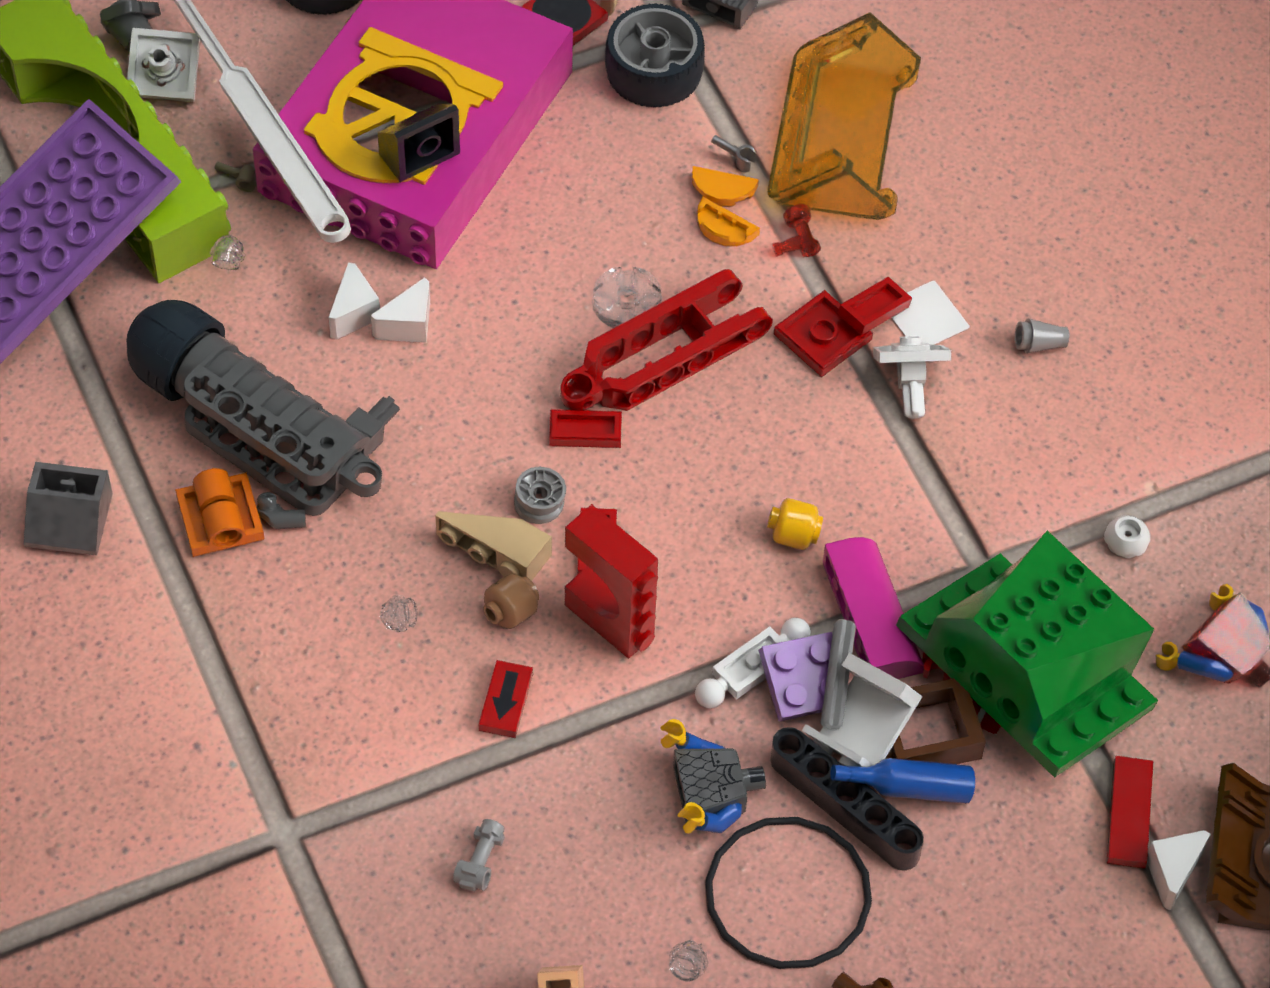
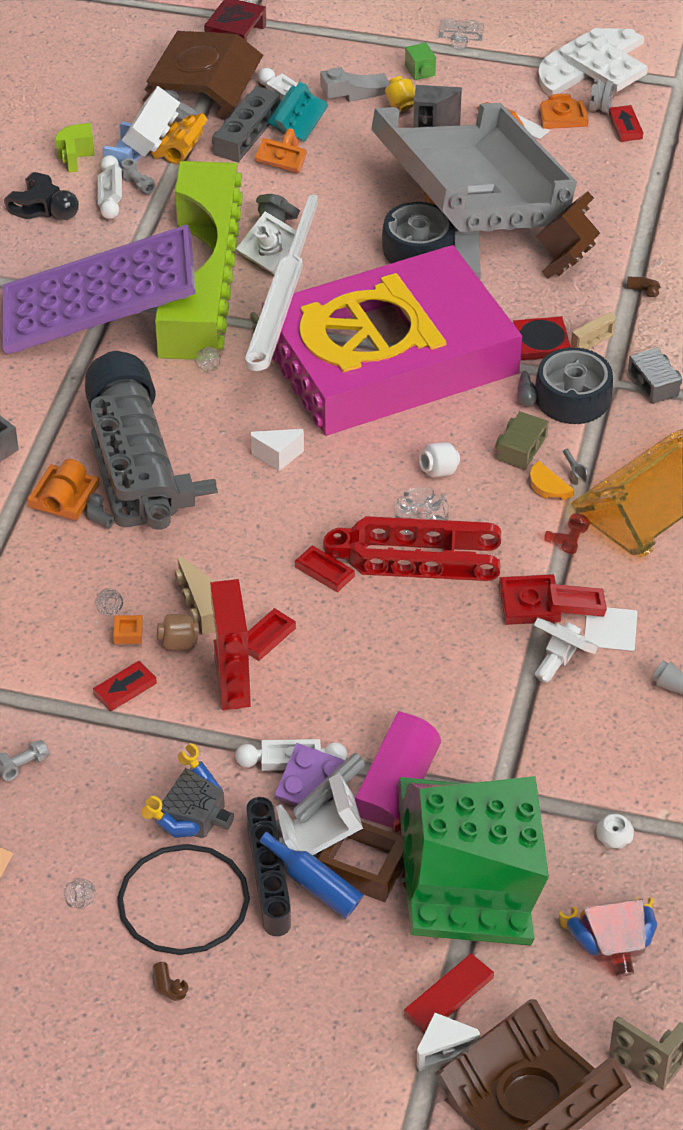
camera: 40 degrees right, 10 degrees down
(353, 304) = (249, 420): white slope -> none
(420, 140) = (355, 343): black slope -> none
(450, 632) = (128, 629): none -> orange plate
(544, 482) = (257, 586): light grey wheel -> none
(593, 226) = (439, 459): none -> white head
(610, 93) = (526, 390): none -> dark grey bar
(656, 152) = (521, 440): none -> olive brick
(724, 226) = (527, 506): light orange tile -> none
(795, 523) = (397, 692): yellow head -> none

